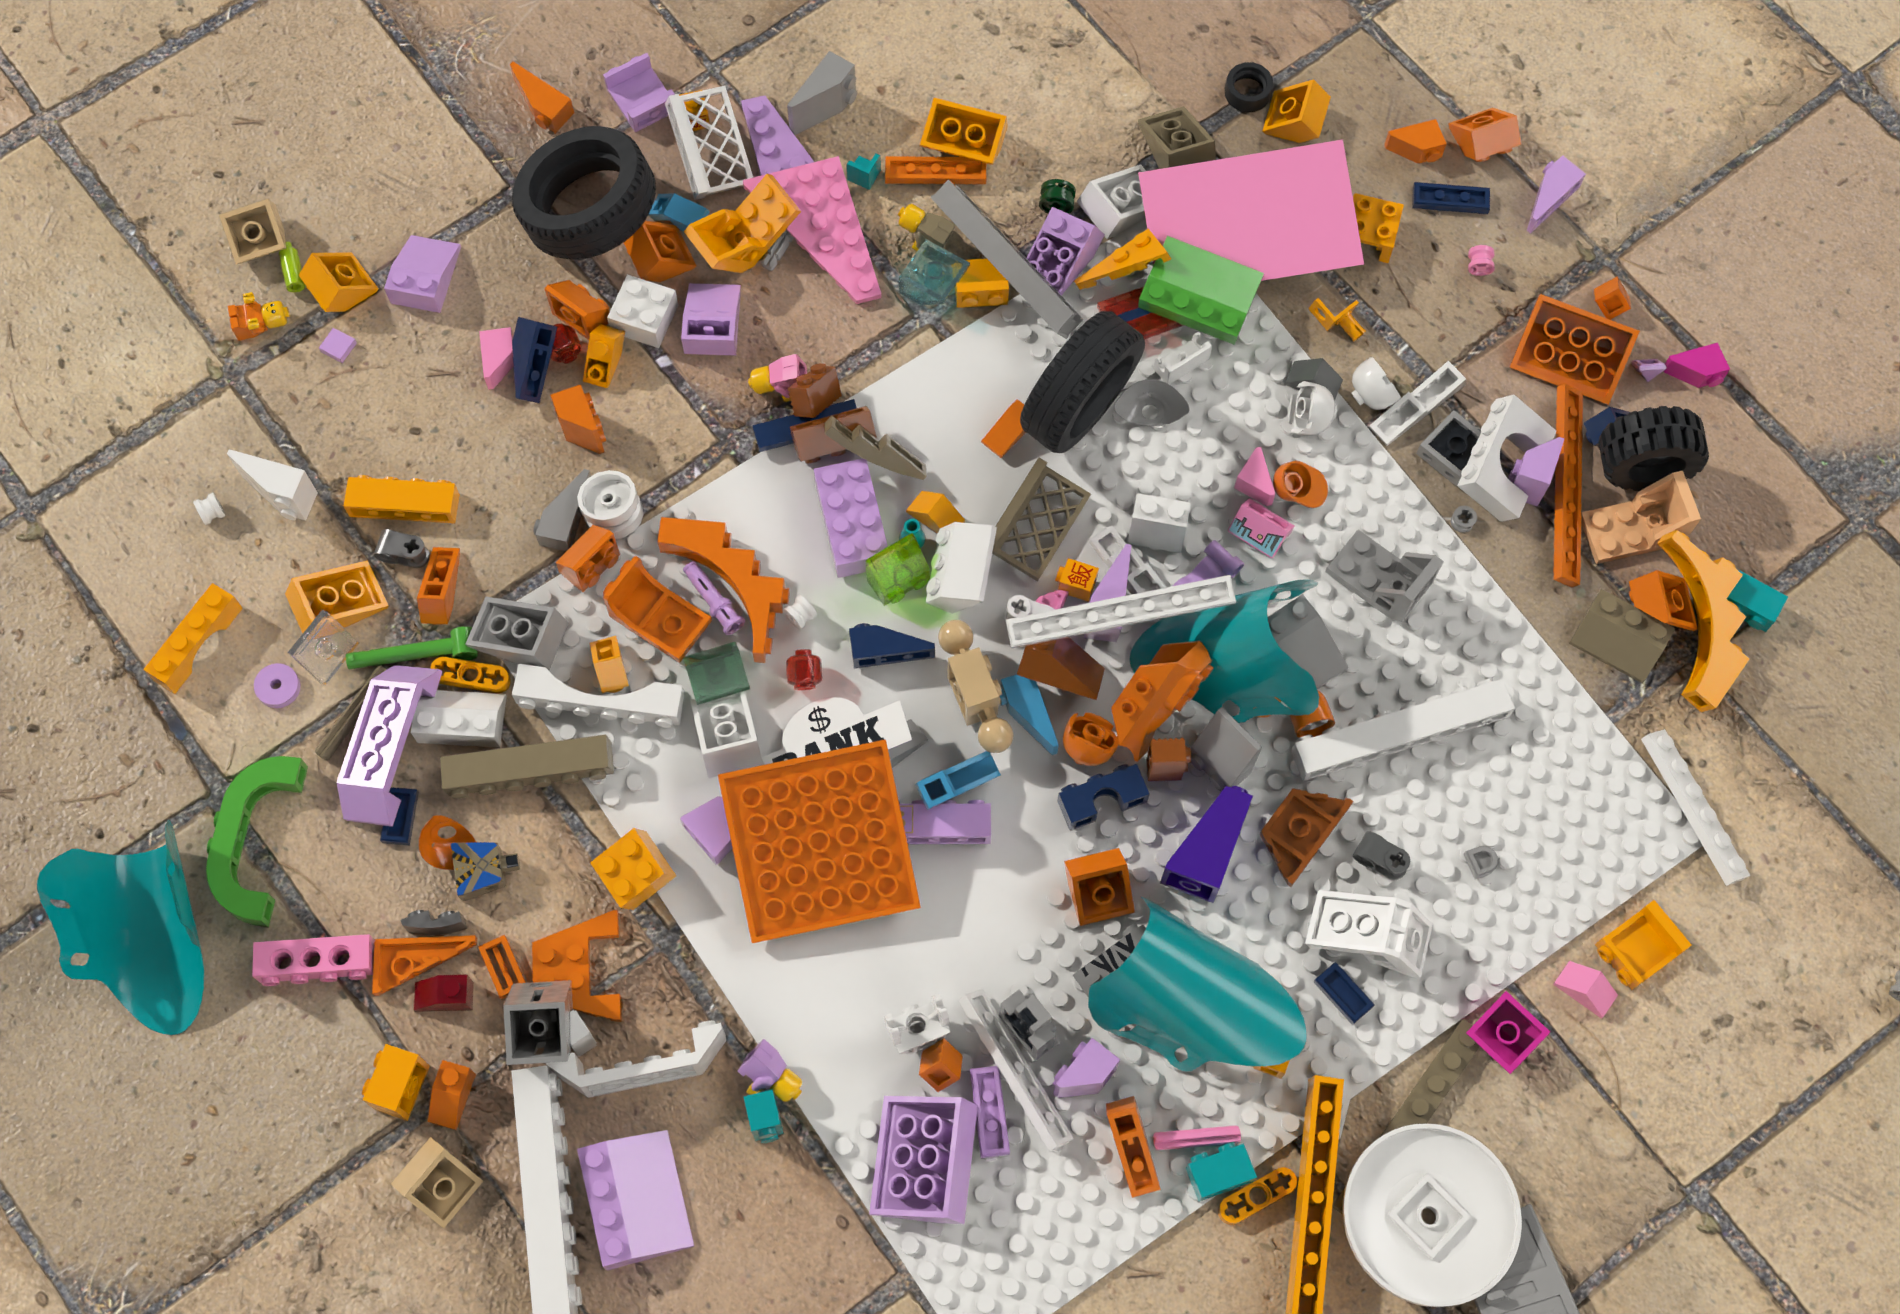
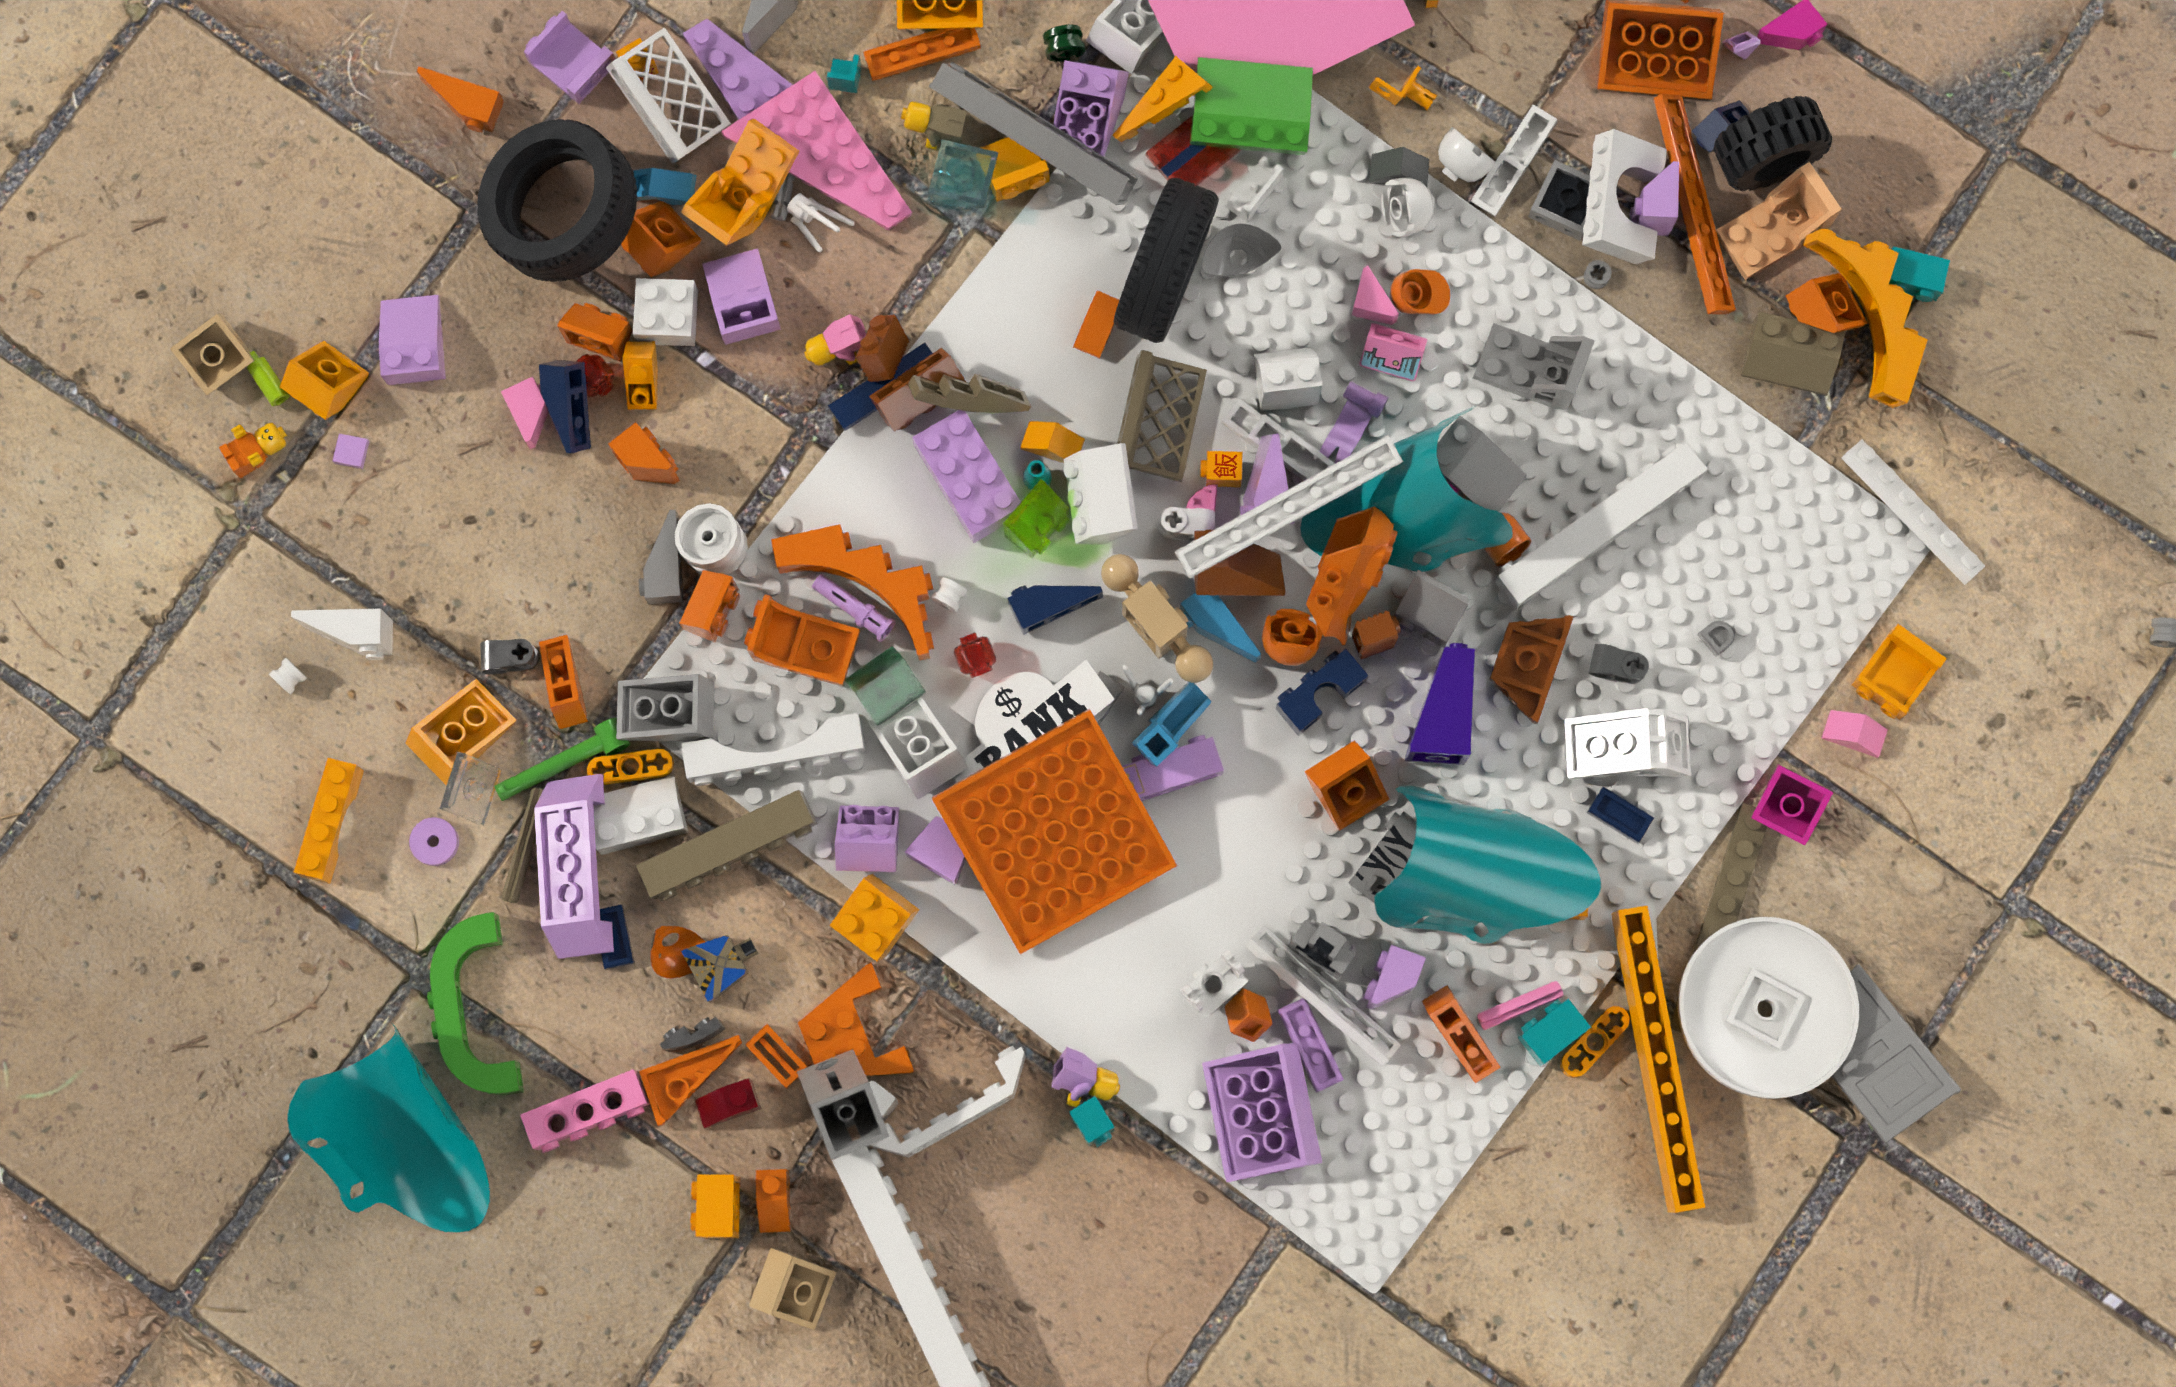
camera: 15 degrees left, 10 degrees up
(401, 499) = (487, 601): light orange brick -> none
(609, 665) = (772, 712): light orange slope -> none
(635, 1198) = (993, 1240): lavender slope -> none
(652, 798) = (867, 838): none -> lavender slope
(792, 266) = (806, 209): none -> white plant
(943, 750) = (1144, 694): none -> white plant

